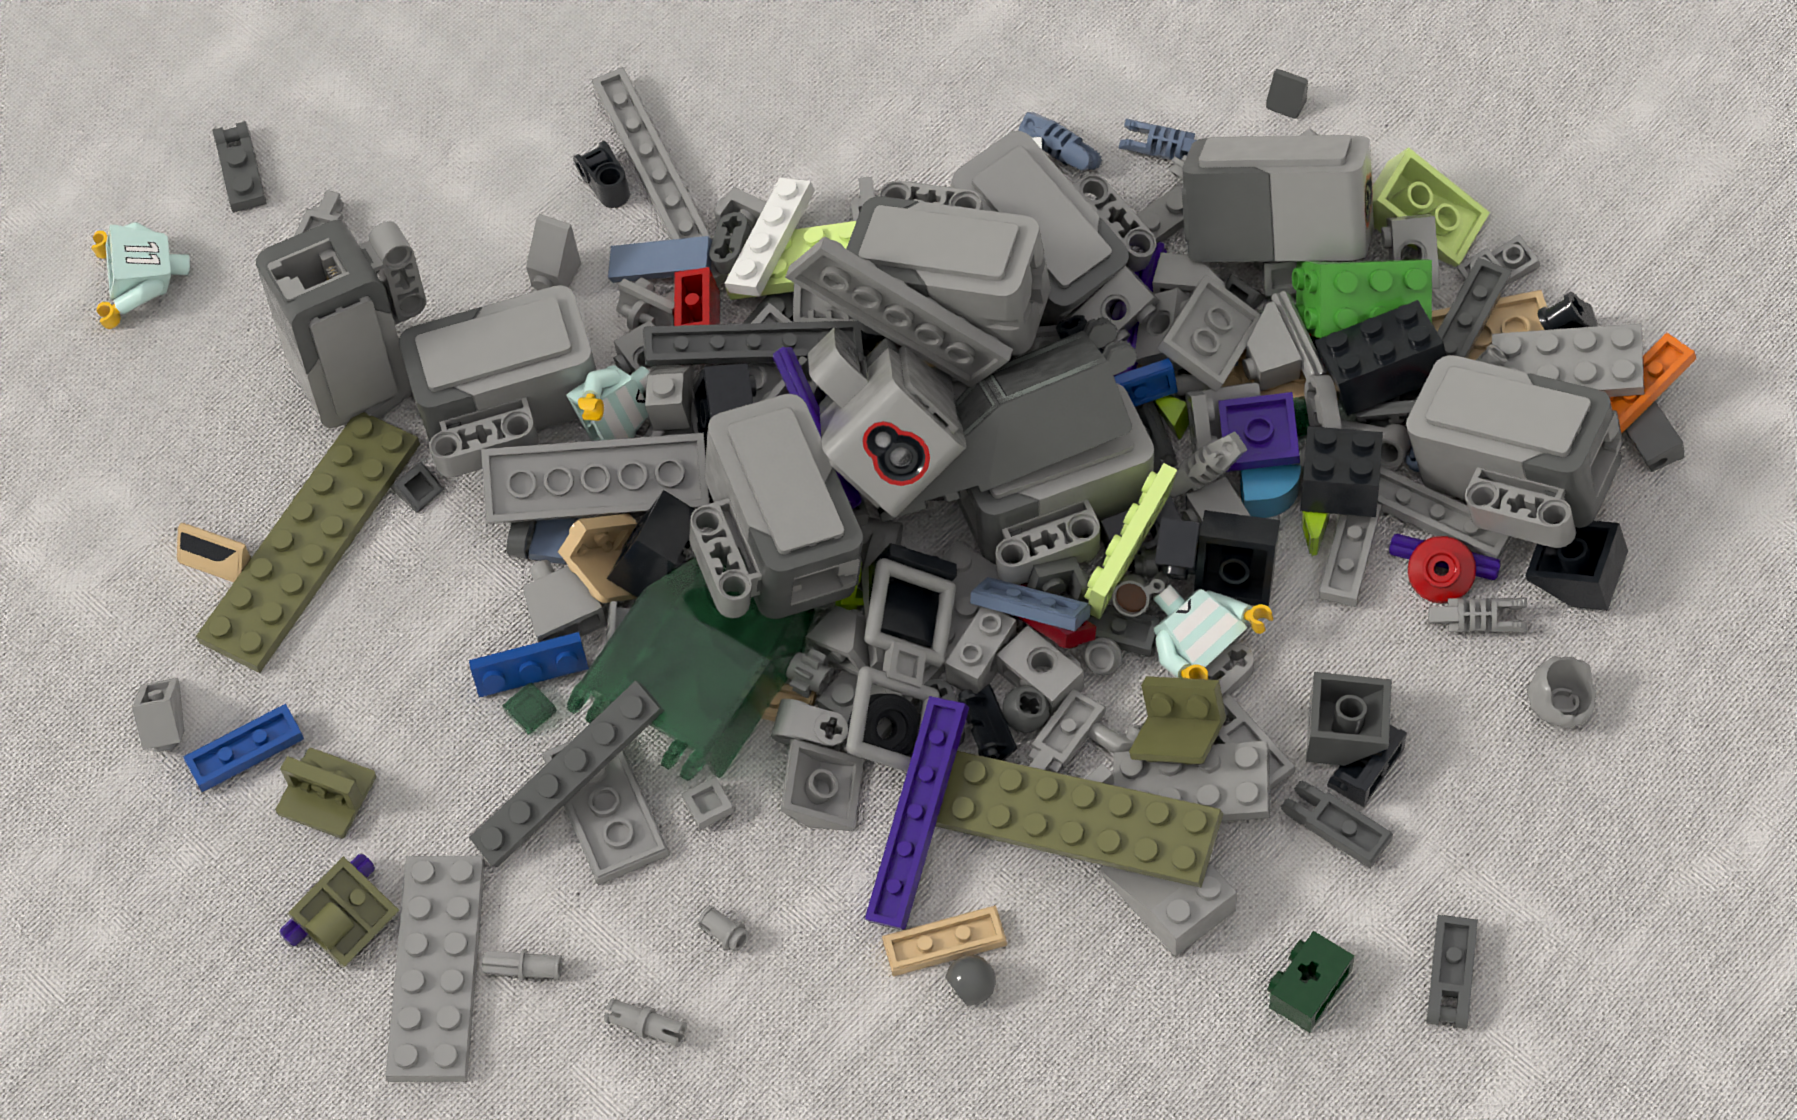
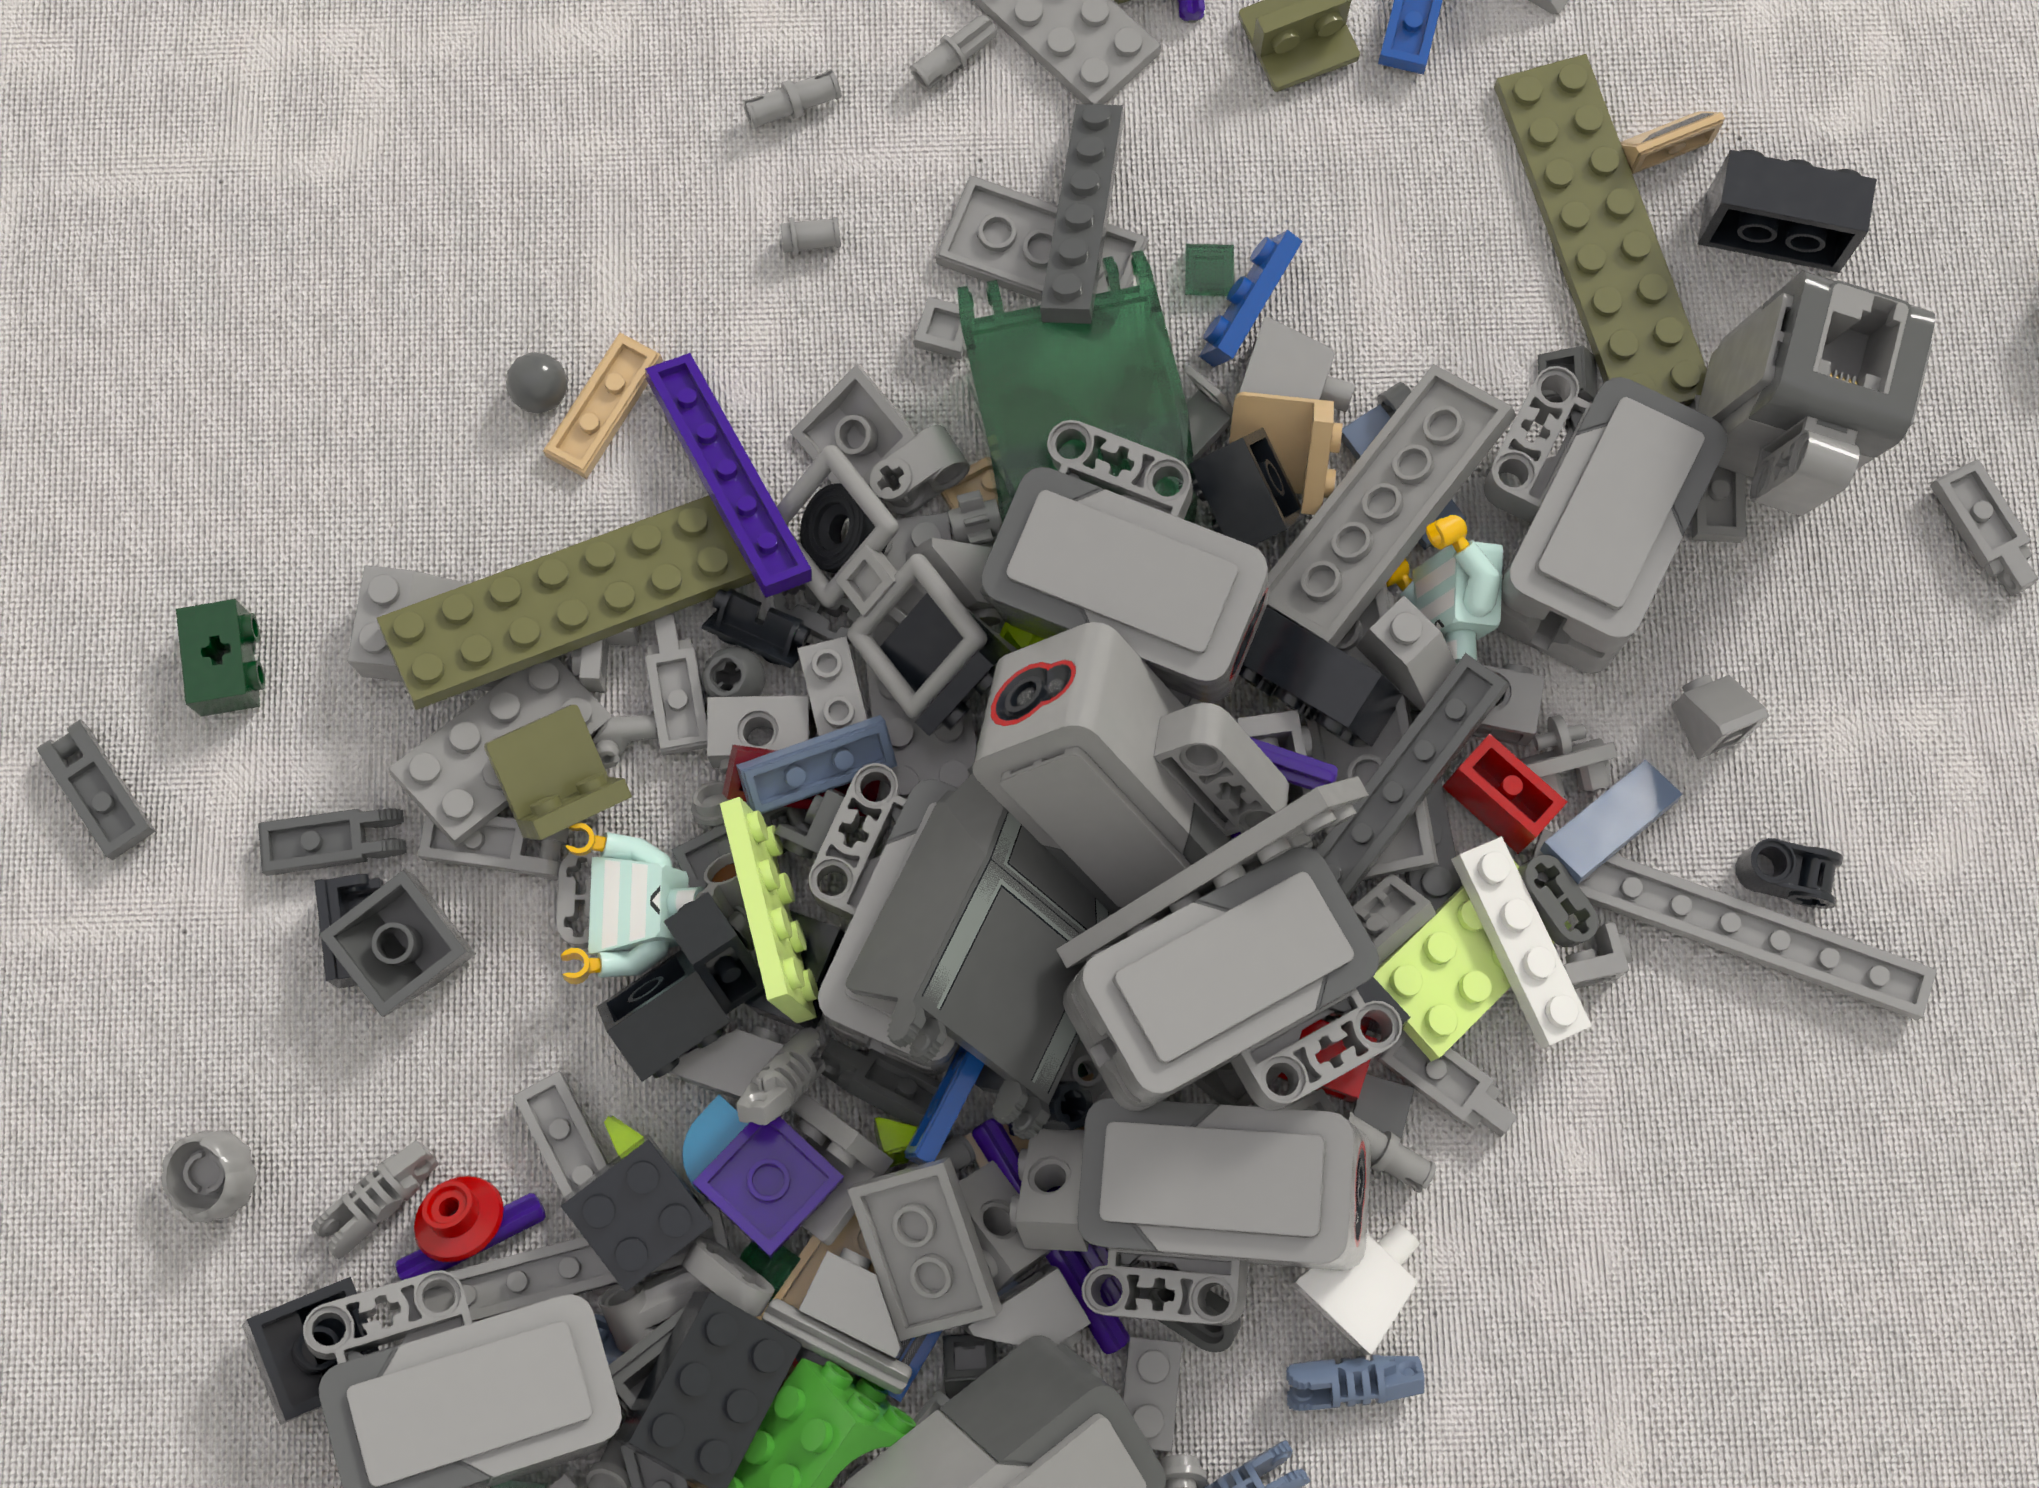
camera: 130 degrees right, 15 degrees up
(212, 450) = (1787, 210): none -> black brick

